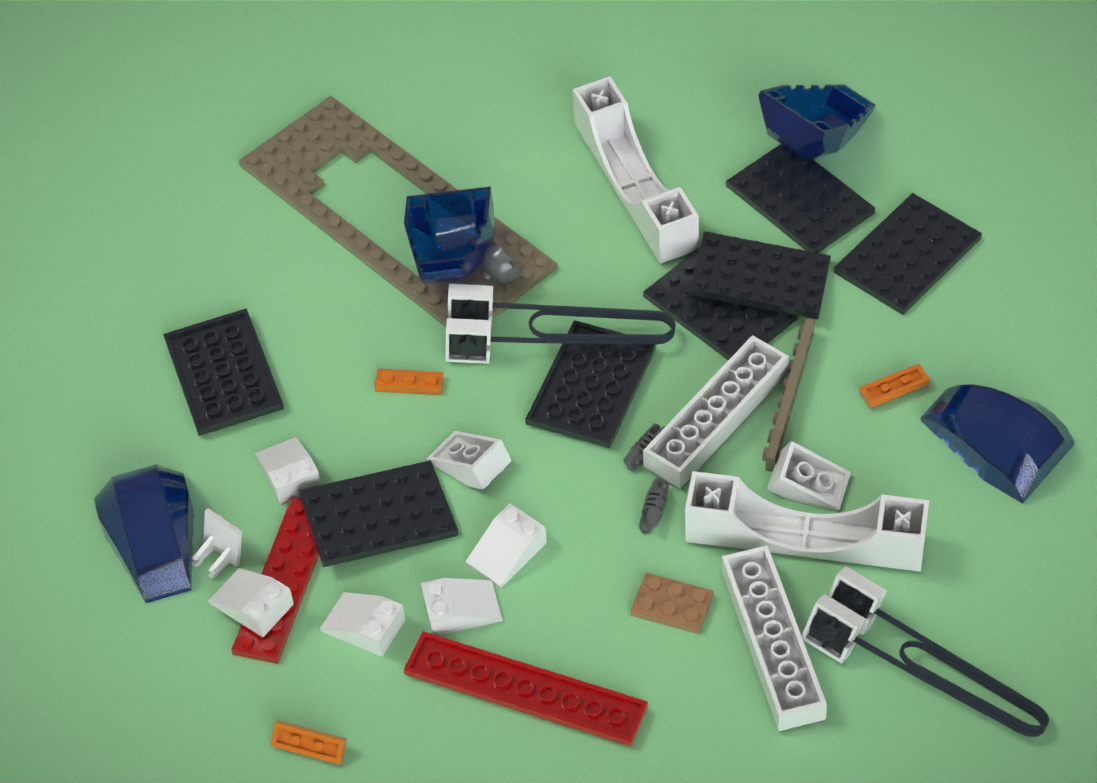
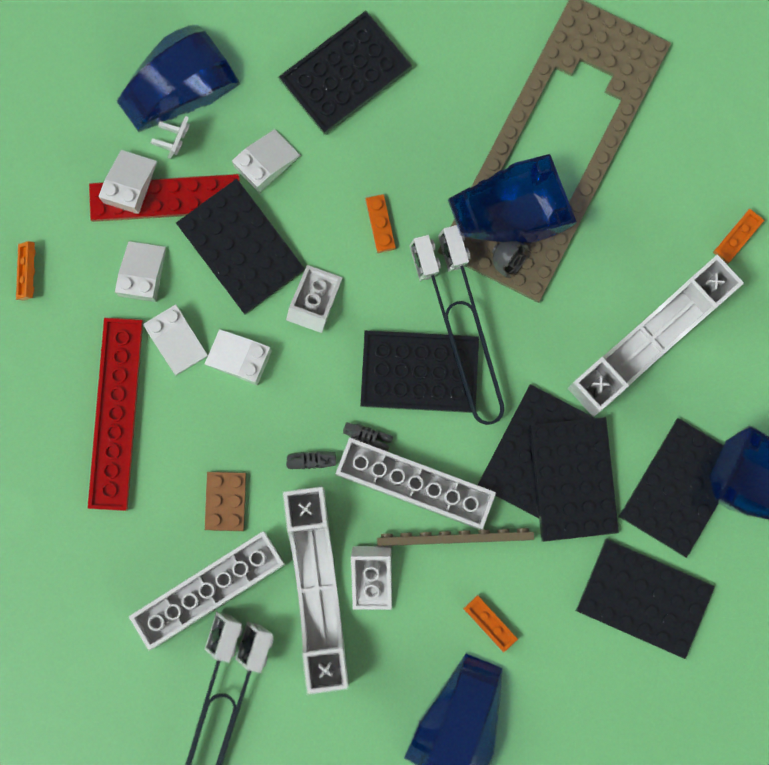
camera: 70 degrees right, 30 degrees up
(554, 90) = (738, 236): none -> orange plate

